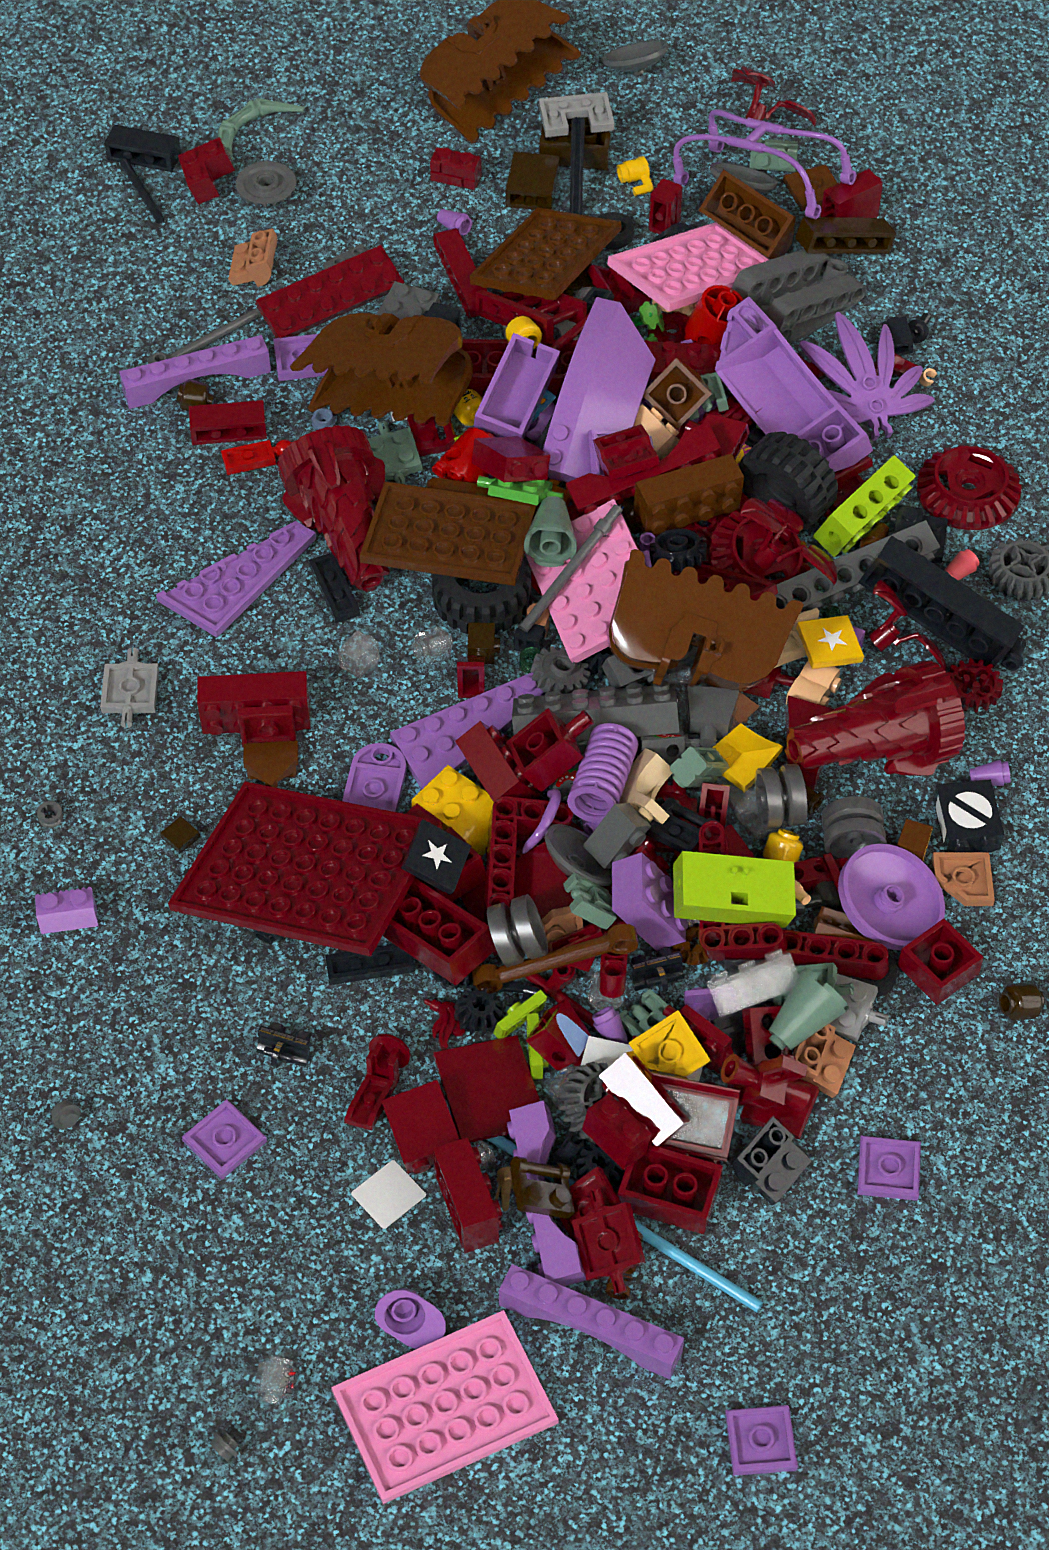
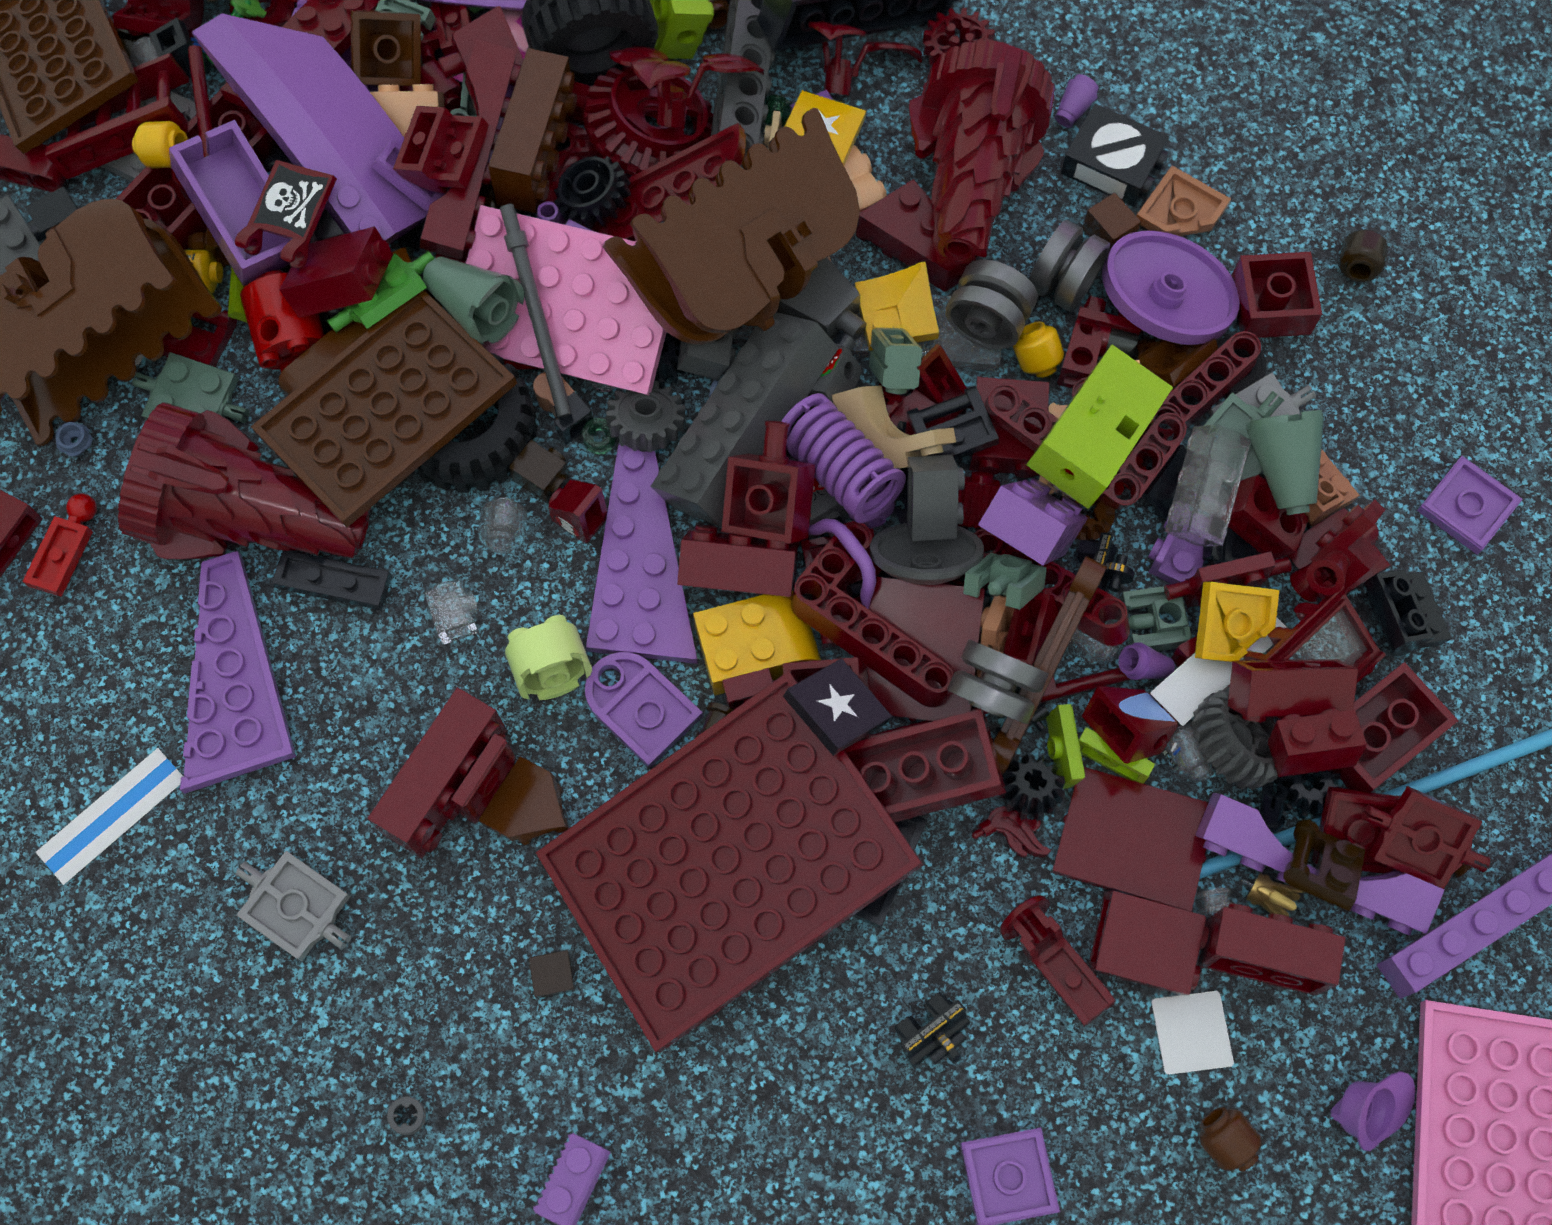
camera: 55 degrees left, 15 degrees up
(120, 577) = (110, 816): none -> white sticker
(330, 1243) = (1230, 1139): none -> reddish brown head
(364, 713) = (547, 658): none -> yellowish green brick
(524, 411) = (288, 208): none -> flag

